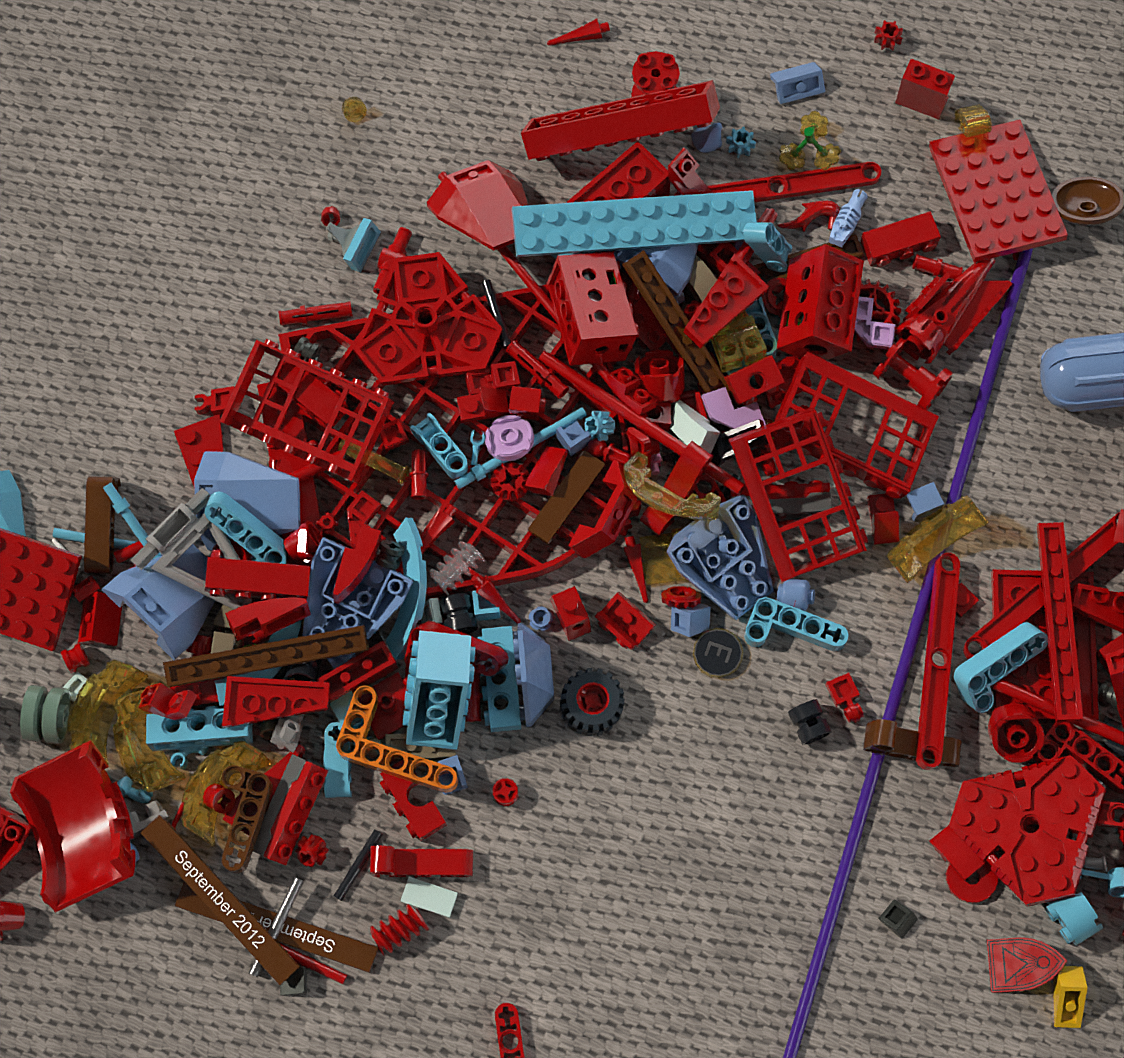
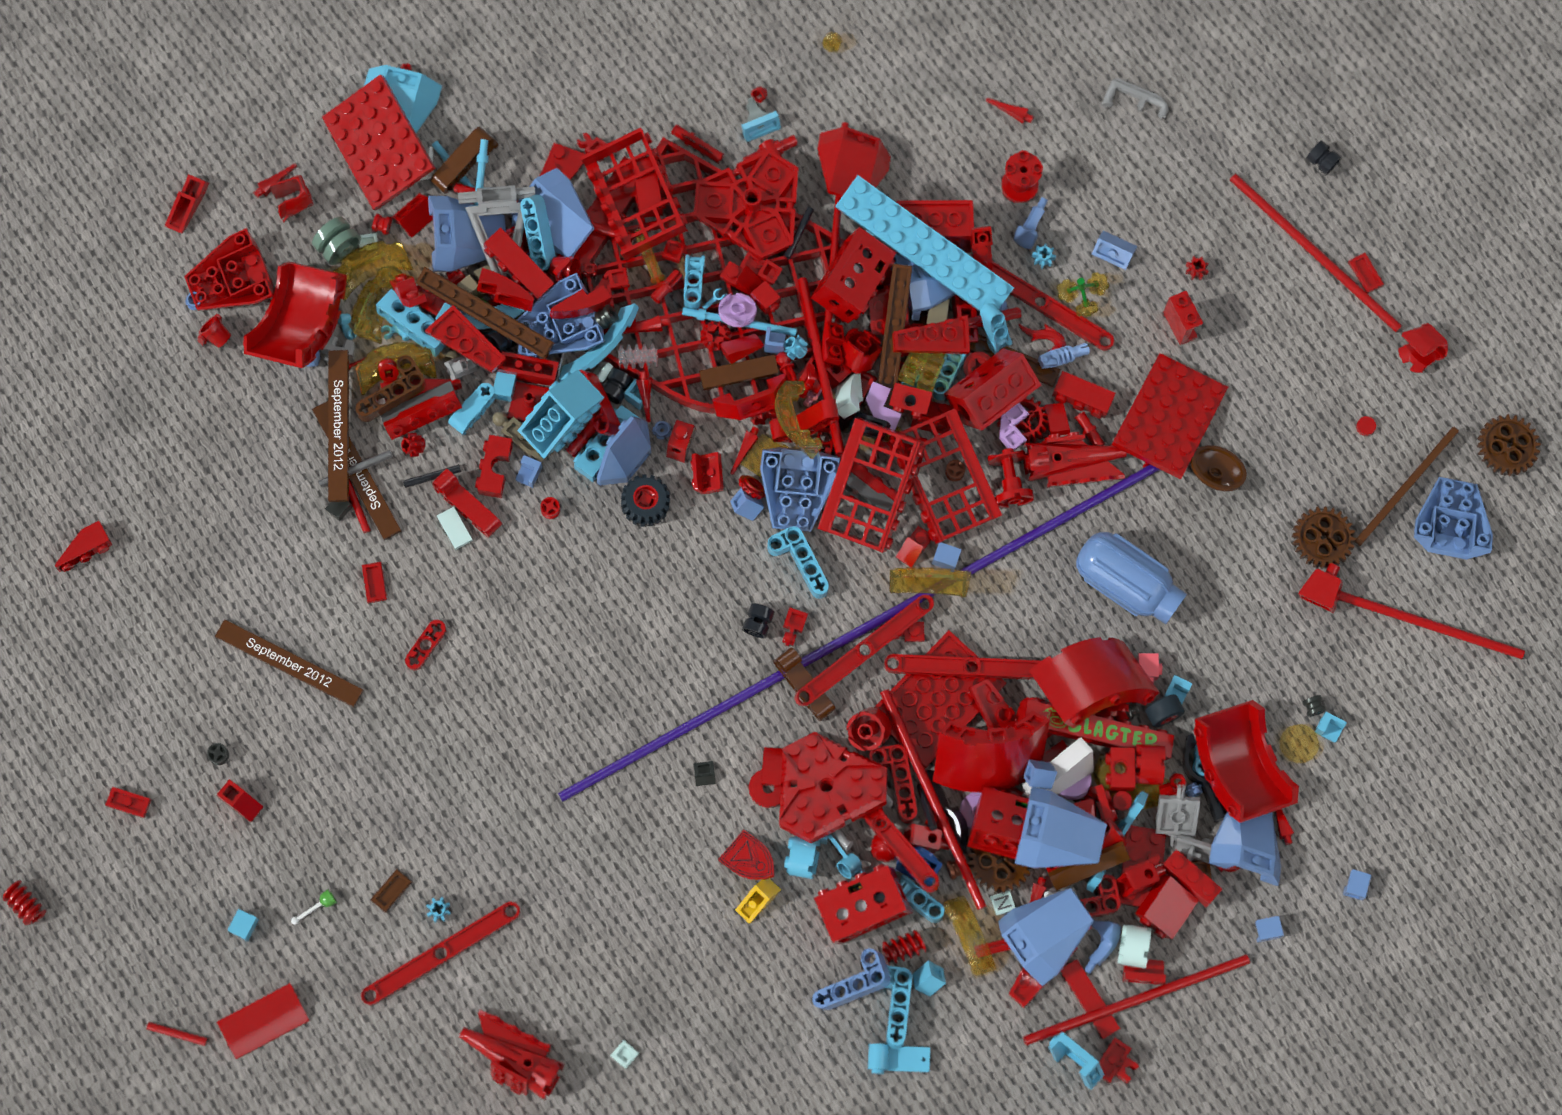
camera: 35 degrees right, 0 degrees up
(85, 588) = (422, 189): red tile -> none
(308, 349) = (668, 160): pearl dark grey wheel -> none
(387, 754) = (500, 426): orange beam -> none
(398, 928) = (420, 529): red piece -> none
(400, 1024) = (374, 582): none -> red tile
(537, 369) = (792, 292): red pin -> none
(621, 120) = (975, 180): red brick -> none
(717, 653) = (744, 537): black tile -> none
(796, 593) = (820, 543): medium blue head -> none
(854, 408) = (954, 467): none -> copper wheel
(903, 283) = (1057, 419): none -> red tile
(973, 120) = (1196, 362): clear yellow beam -> none
(995, 662) = (928, 688): medium azure beam -> none
(1059, 622) = (953, 689): red plate -> none

